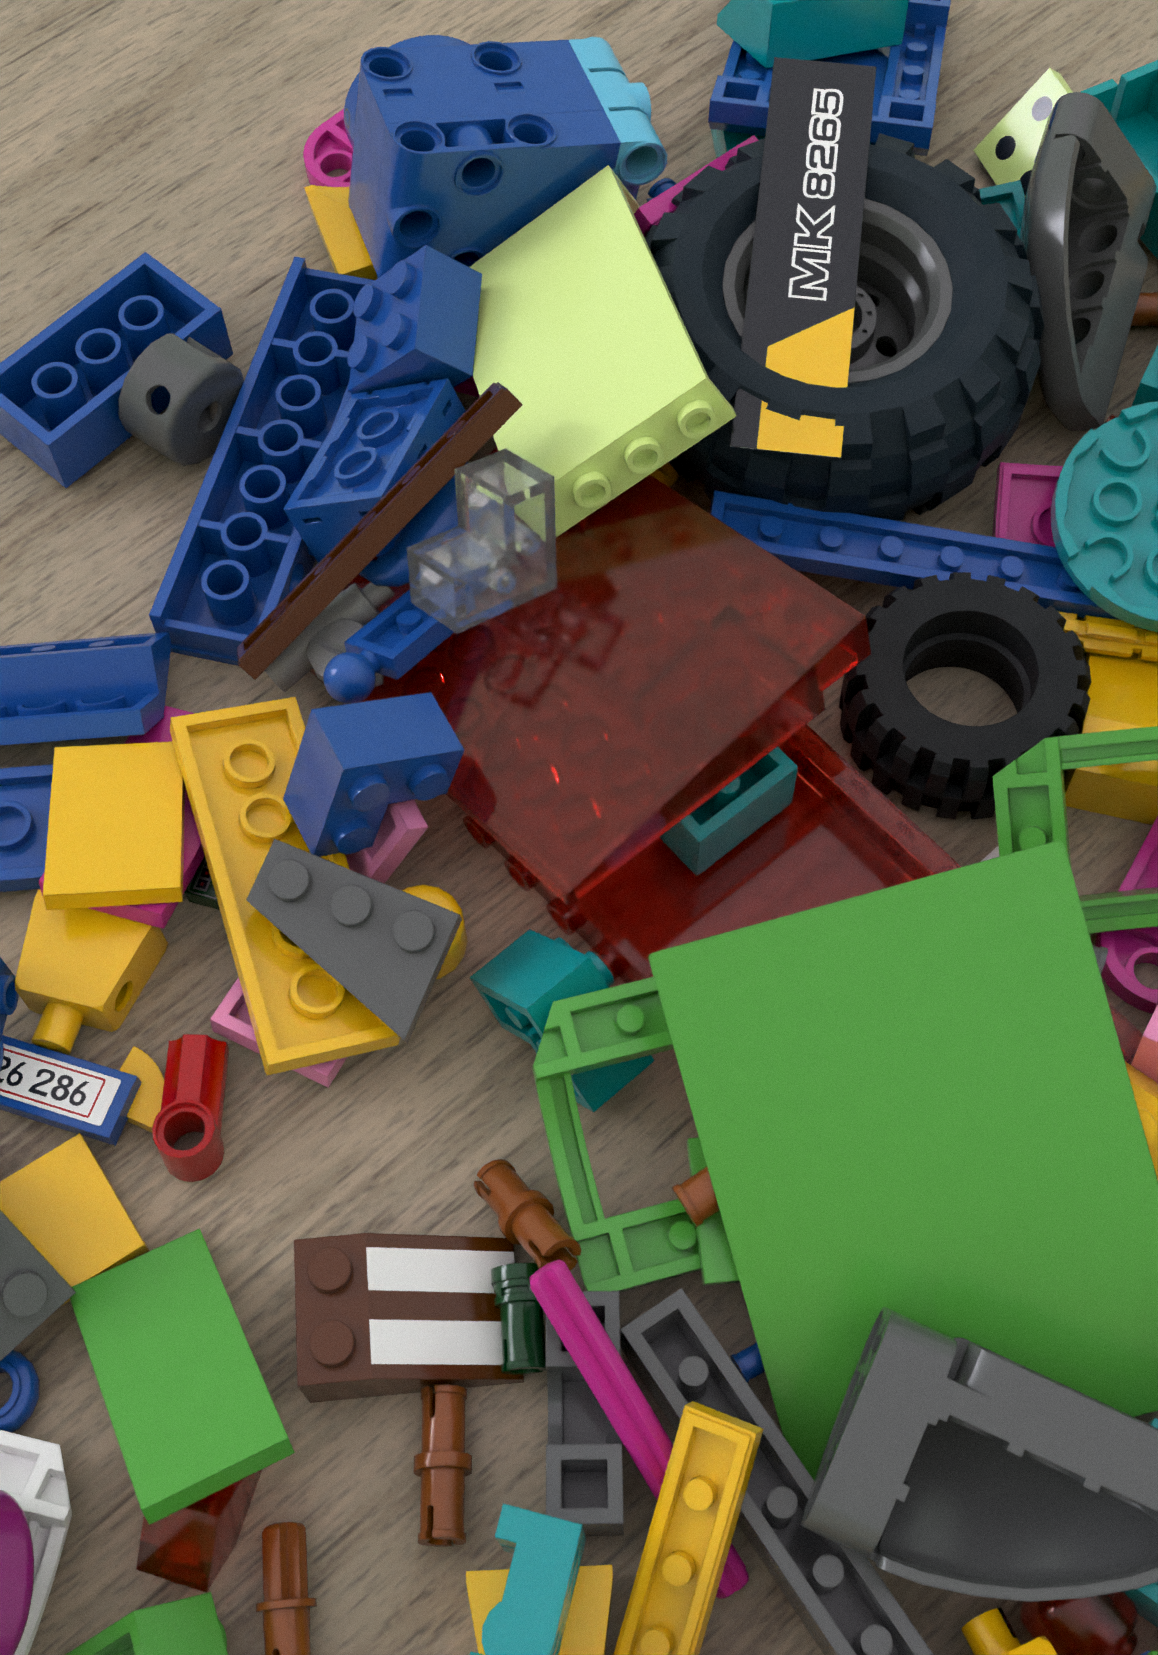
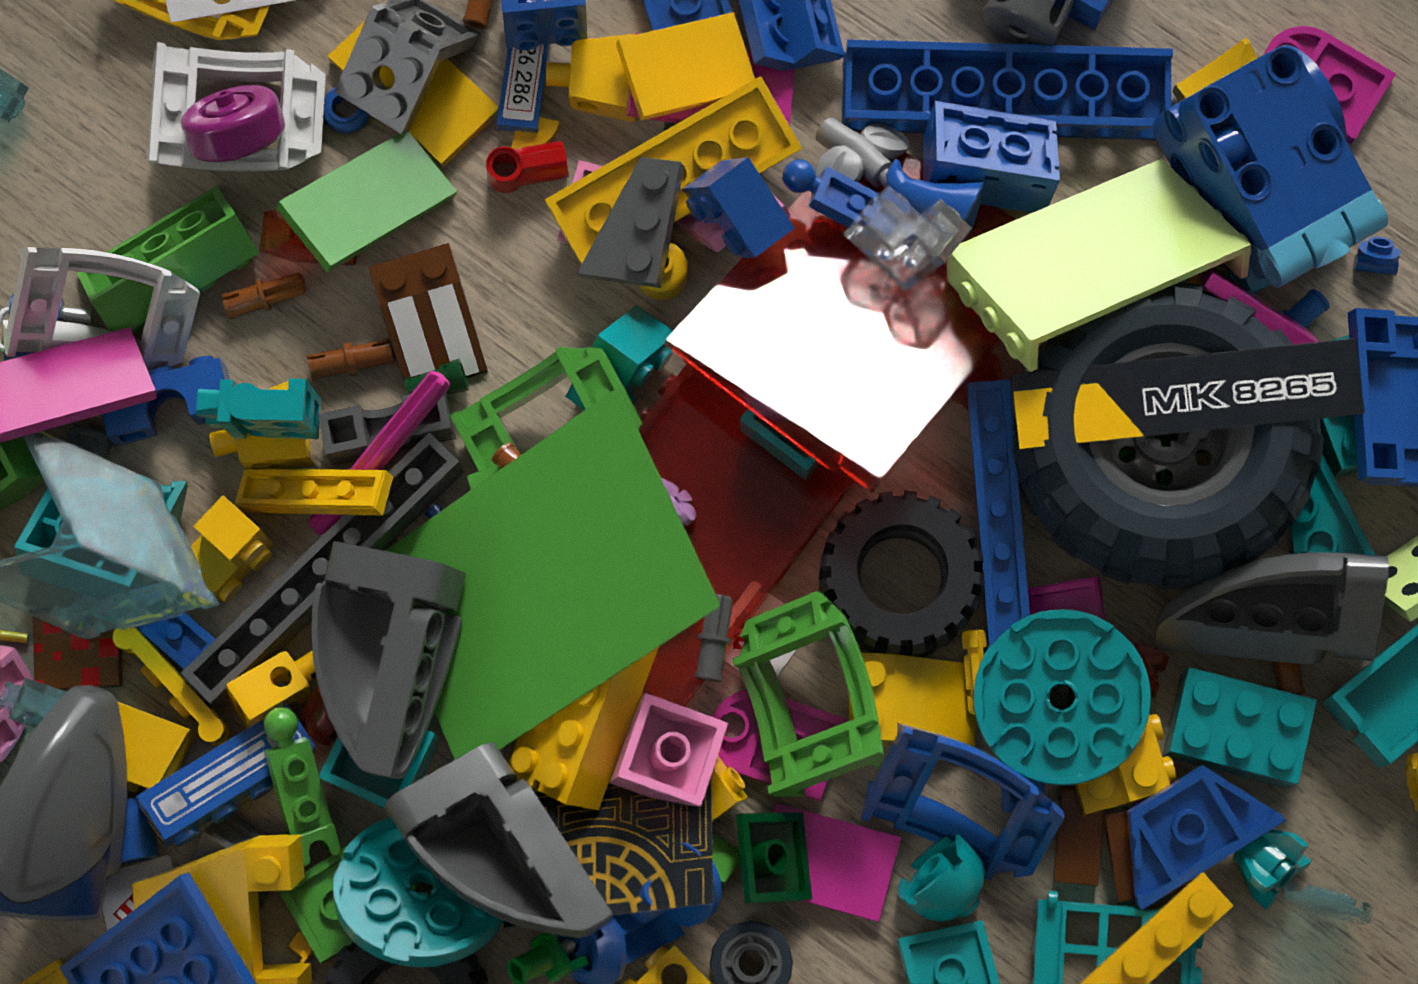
camera: 80 degrees right, 15 degrees up
(376, 529) = (911, 165): reddish brown tile -> none
(416, 324) = (1105, 148): blue brick -> none
(525, 1215) = (492, 371): dark orange pin -> none

